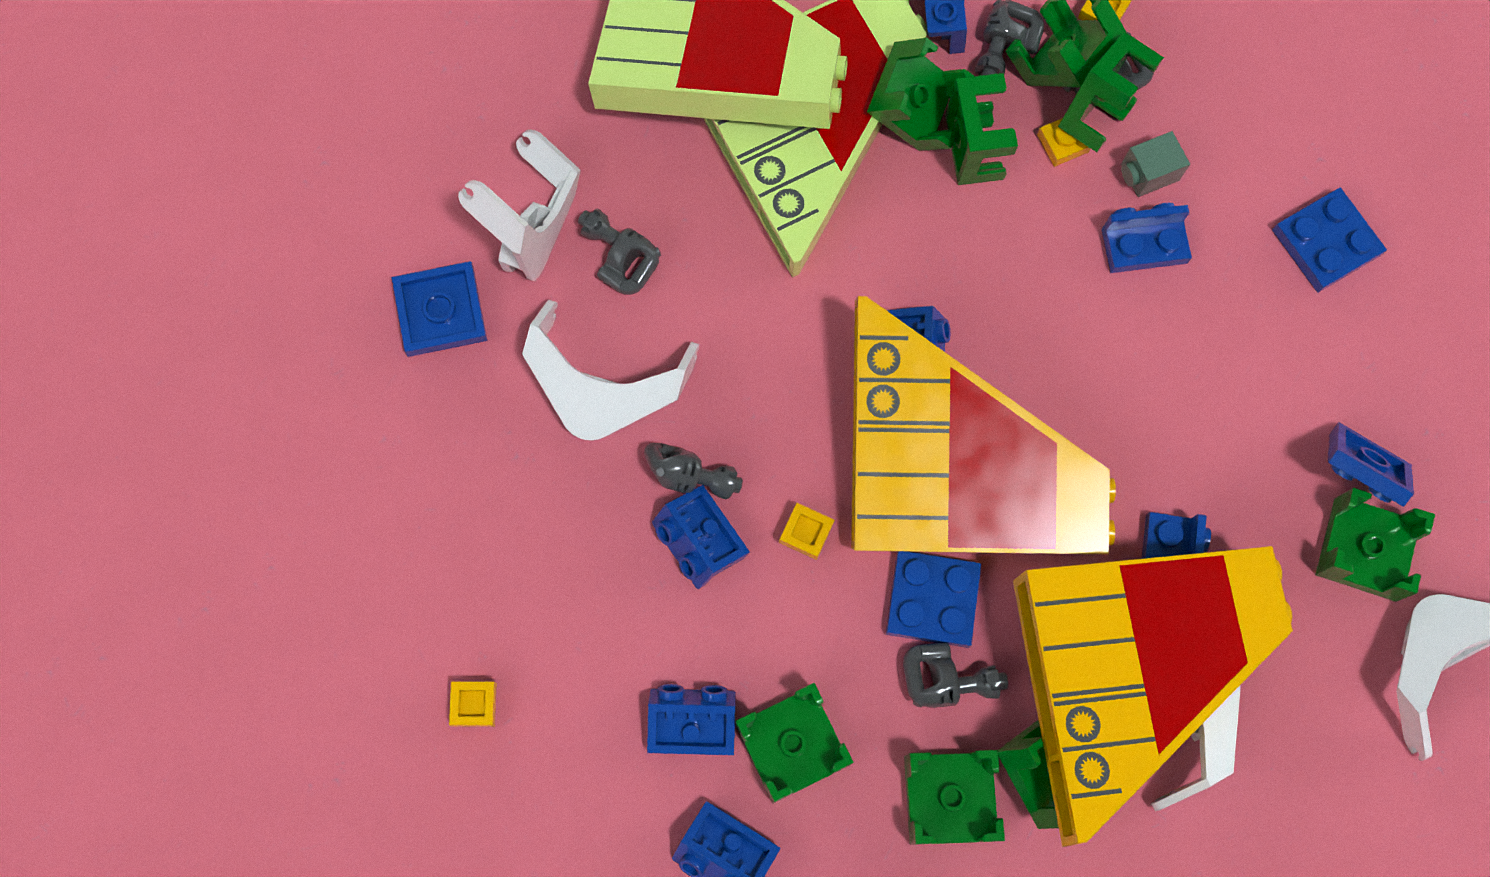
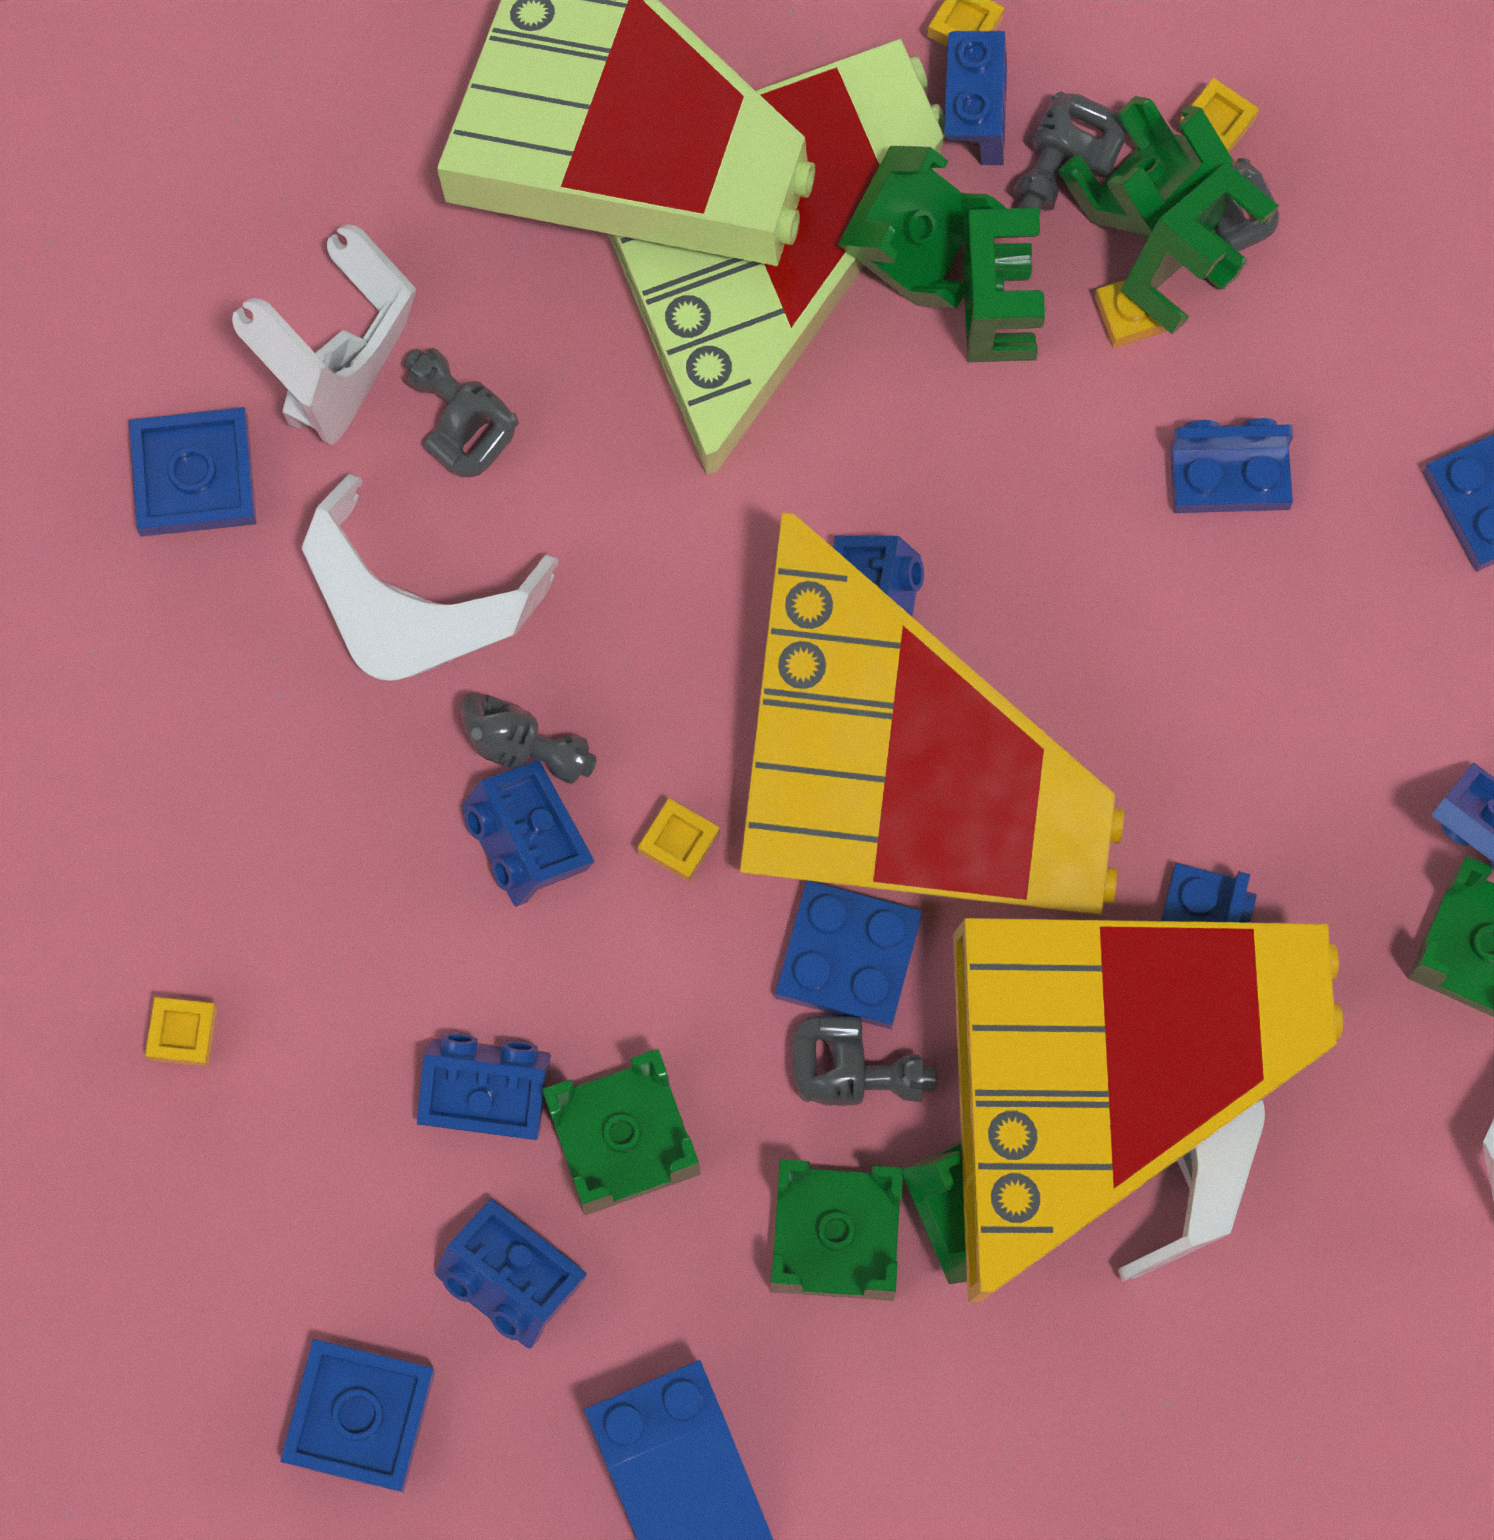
camera: 10 degrees right, 0 degrees up
(1154, 164) = (1256, 359): sand green brick -> none

